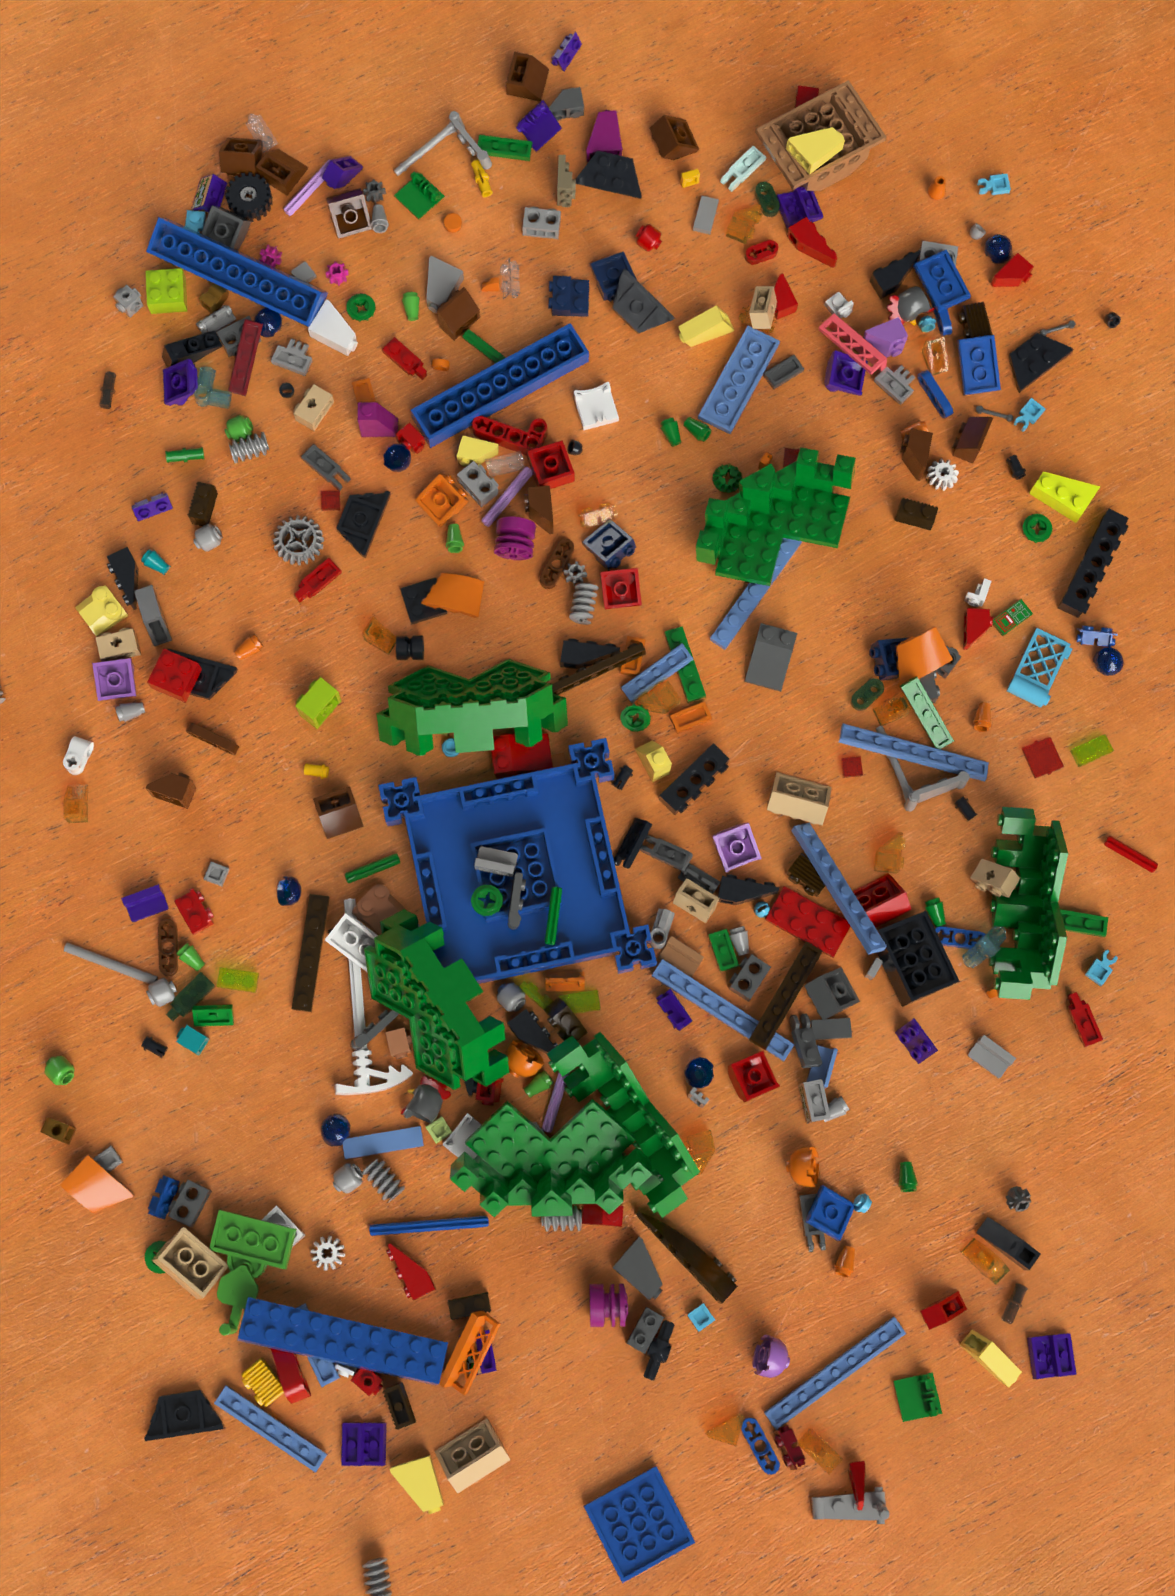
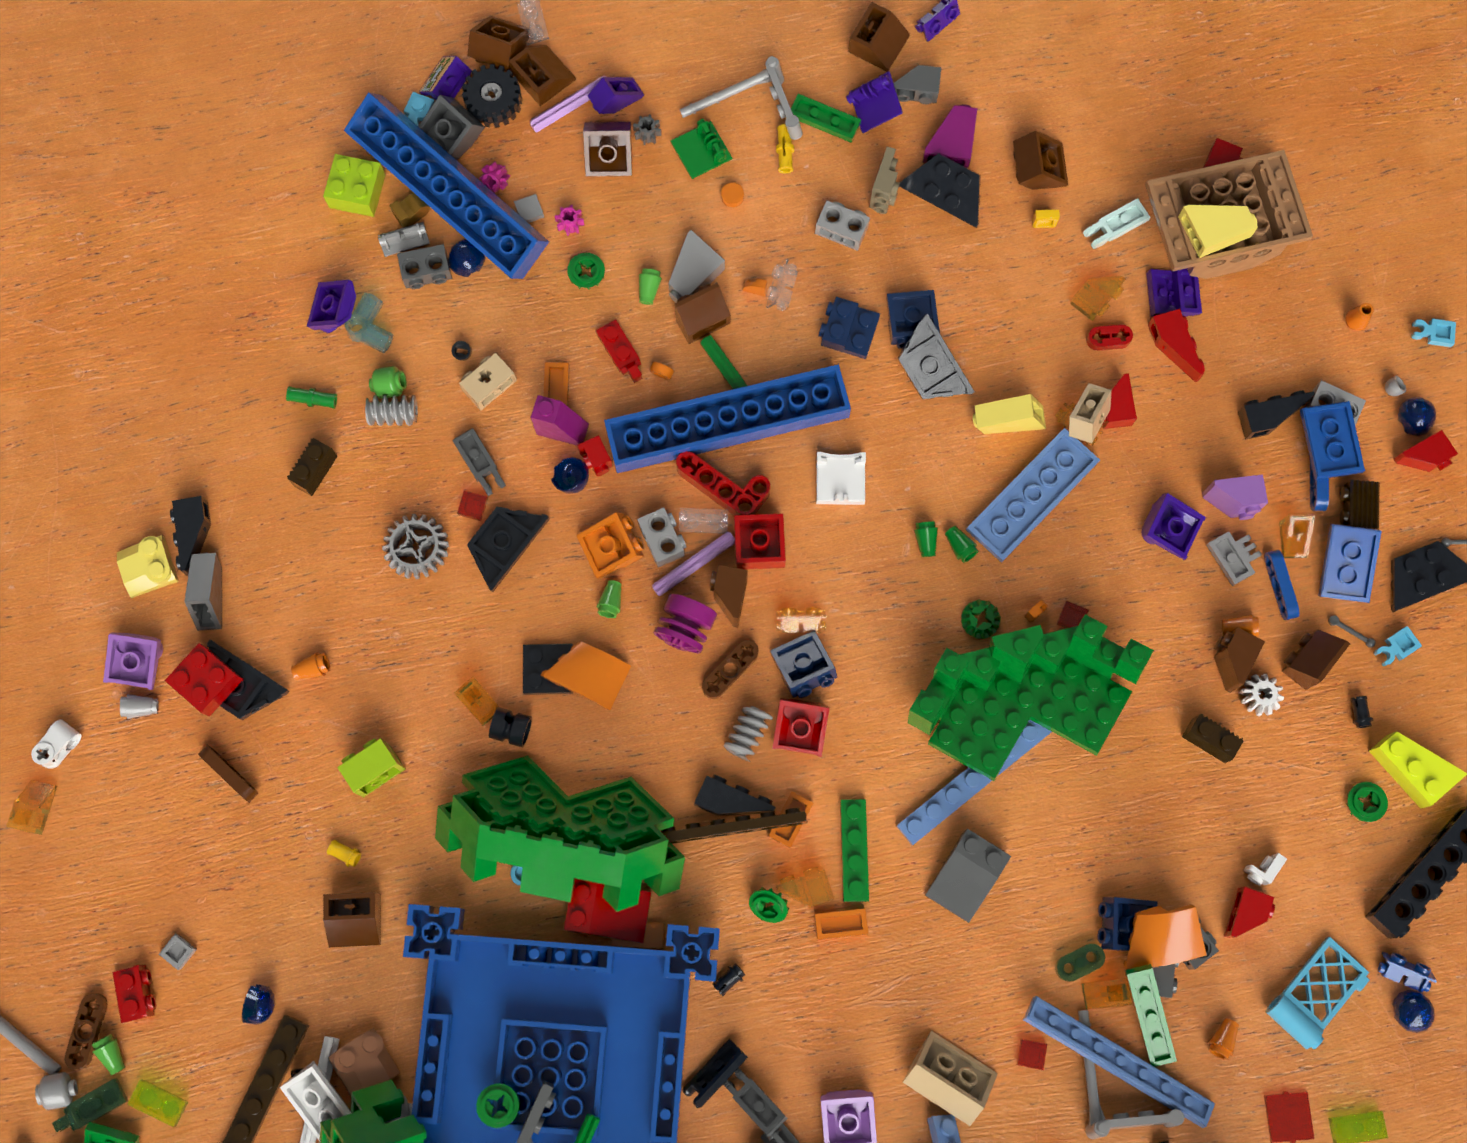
camera: 20 degrees right, 0 degrees up
(107, 390) = (245, 289): clear smoke axle -> none
(127, 647) = (164, 622): tan brick -> none
(128, 300) = (304, 185): light grey brick -> none
(145, 509) = (241, 452): dark purple hinge -> none
(145, 903) = (77, 964): dark purple panel -> none
(154, 561) = (231, 522): teal cone -> none
(173, 789) = (156, 829): reddish brown slope -> none
(191, 348) = (361, 266): black slope -> none
(207, 537) = (305, 510): light grey head -> none
(245, 357) = (422, 295): dark red tile -> none
(292, 357) = (482, 310): light grey hinge -> none
(317, 580) = (423, 604): red hinge -> none
(333, 330) = (541, 289): white slope -> none
(372, 868) = (374, 1004): green axle -> none
(379, 220) = (643, 166): light grey cone -> none
(475, 450) = (670, 494): light yellow slope -> none
(496, 861) = (526, 1055): light grey panel -> none
(572, 568) = (746, 682): light grey gear -> none
(574, 447) = (797, 524): black hinge -> none
(648, 237) = (971, 280): red head -> none
(654, 760) = (775, 968): light yellow slope -> none
(657, 673) = (814, 853): medium blue tile -> none
(705, 215) = (1052, 270): light grey tile -> none
(712, 756) = (860, 999): black brick -> none
(768, 200) = (1136, 273): clear green plate -> none
(783, 372) = (1093, 500): dark grey tile -> none
(839, 305) = (1189, 434): white bracket -> none
(856, 341) = (1197, 488): coral fence -> none
(908, 305) = (1279, 459): dark grey piece -> none
(927, 324) = (1296, 489): medium azure plate -> none
(1012, 617) = (1300, 913): green tile -> none

